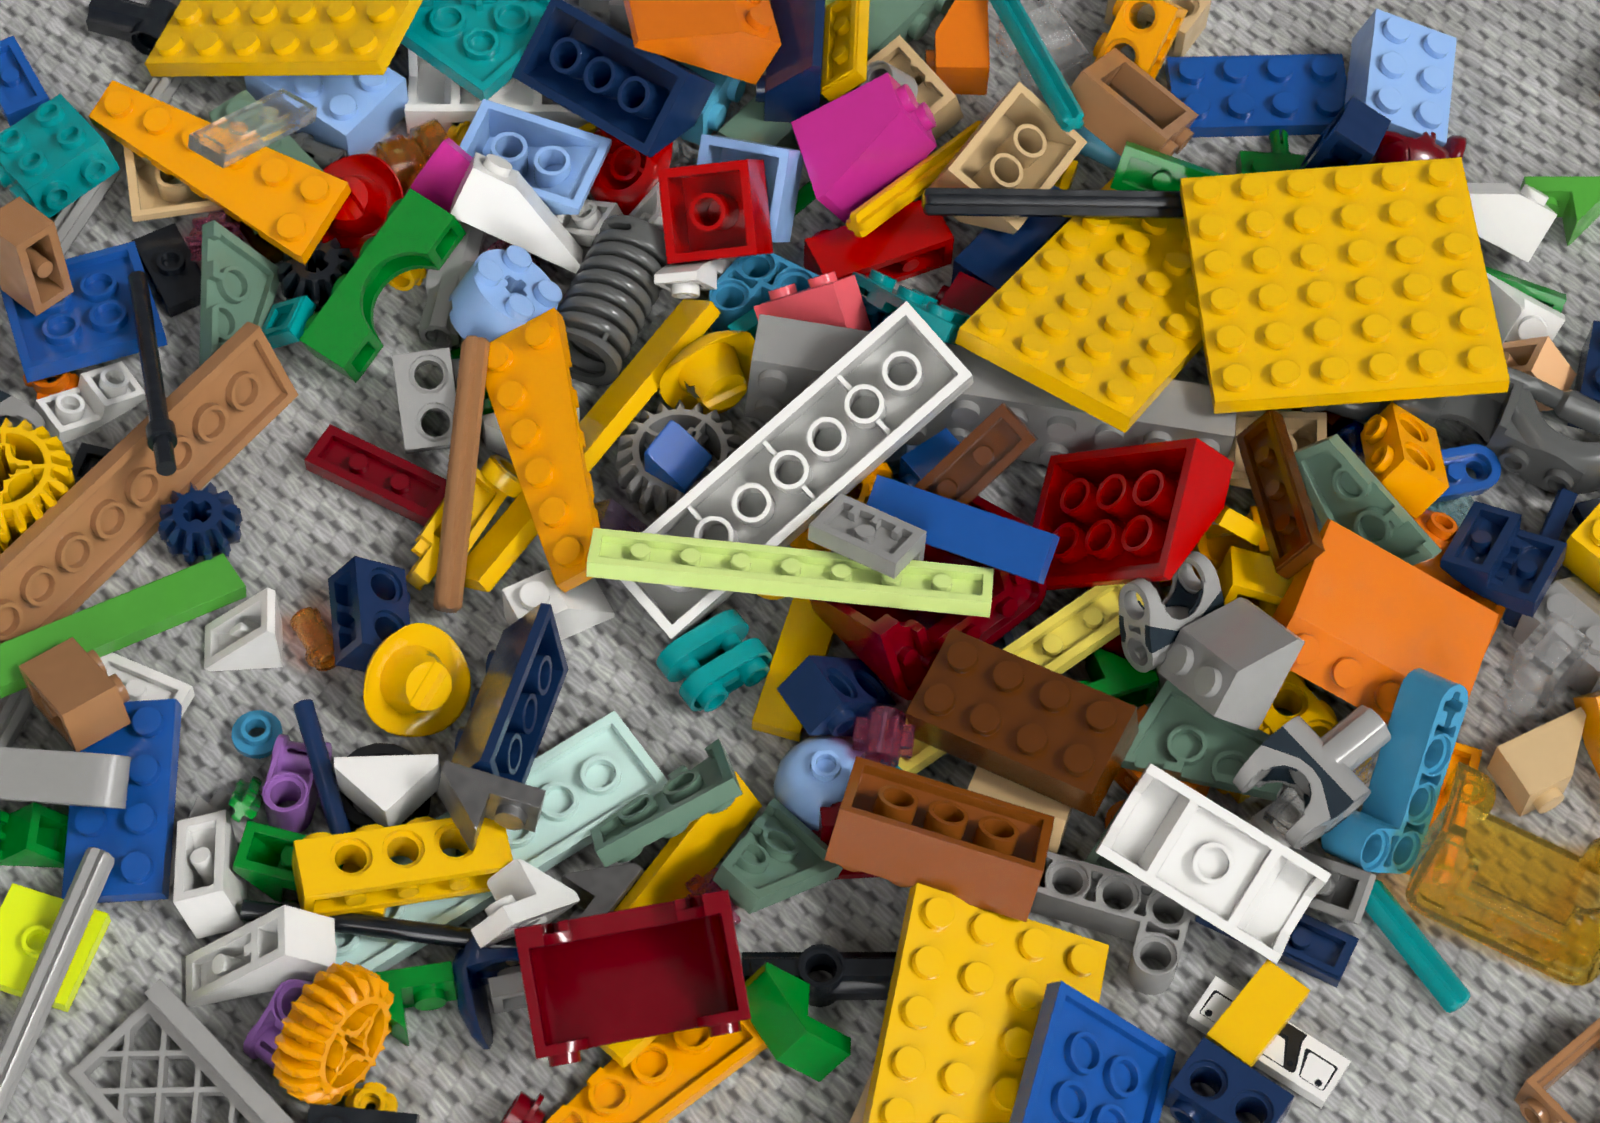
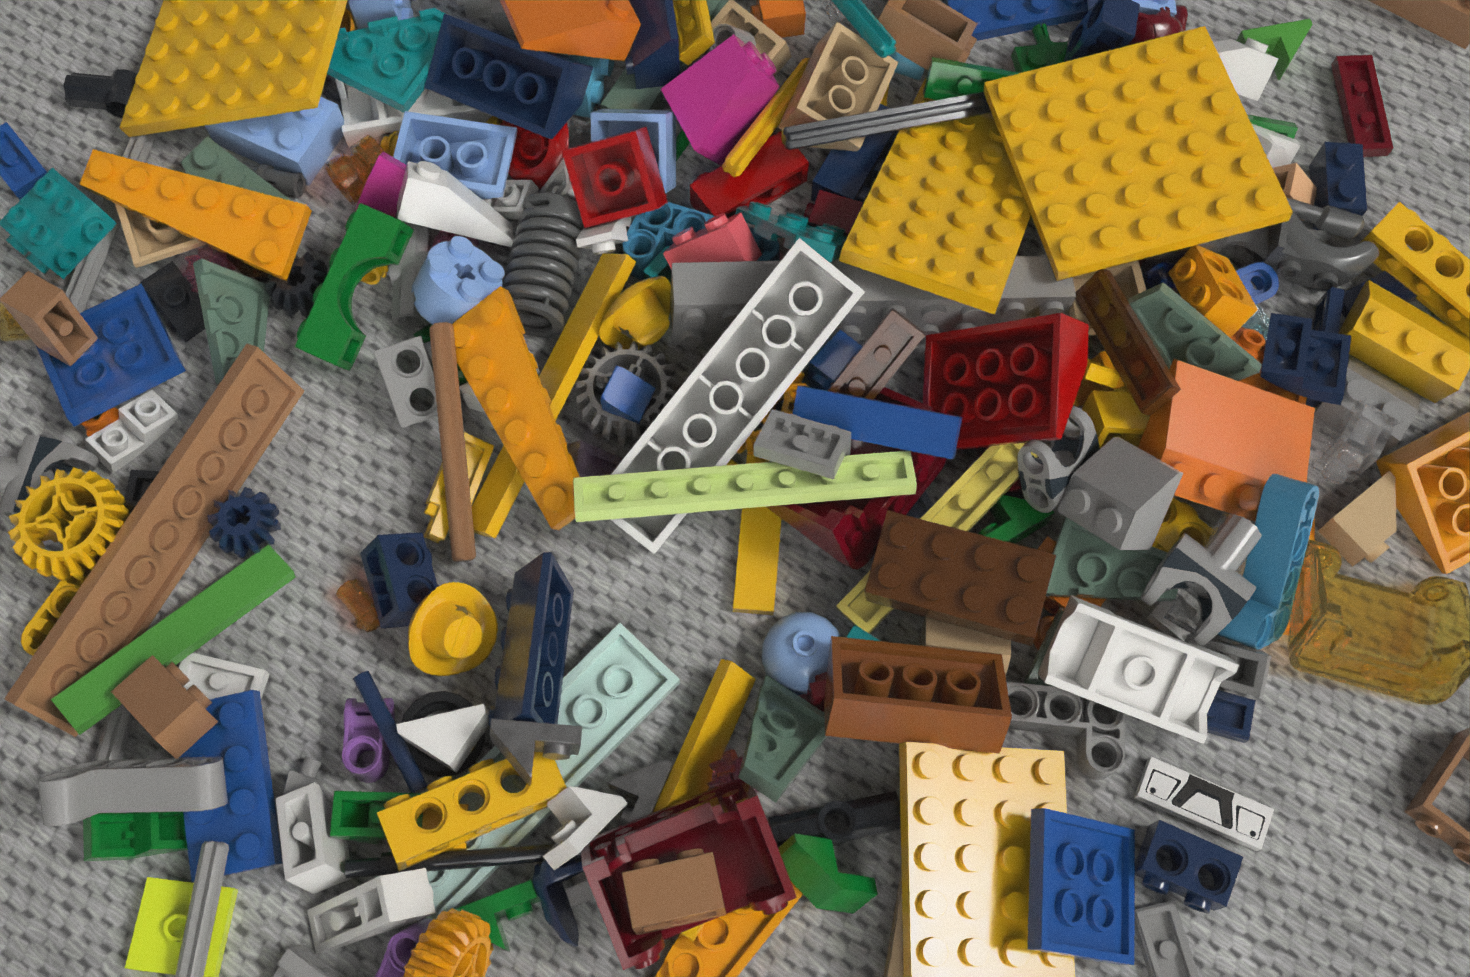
camera: 10 degrees left, 10 degrees up
(160, 430) = (189, 459): black bar -> none
(246, 636) = (302, 615): white slope -> none
(246, 799) = (329, 766): green axle -> none
(252, 128) = (217, 172): clear tile -> none
(259, 746) = (336, 708): dark azure plate -> none
(287, 321) = (281, 331): teal tile -> none
(372, 194) = (330, 209): red hat -> none
(376, 475) = (382, 450): dark red plate -> none
(502, 475) = (484, 433): yellow tile -> none
(572, 610) = (539, 537): white slope -> none
(612, 992) = (673, 891): none -> medium nougat brick
(684, 798) = (694, 698): sand green wing -> none
(714, 661) = (691, 585): teal brick -> none
(831, 694) = (800, 580): dark blue brick -> none
(884, 736) = (847, 610): clear pink gear -> none
(1258, 1013) = (1194, 787): yellow tile -> none
(1416, 949) = (1307, 704): teal axle -> none

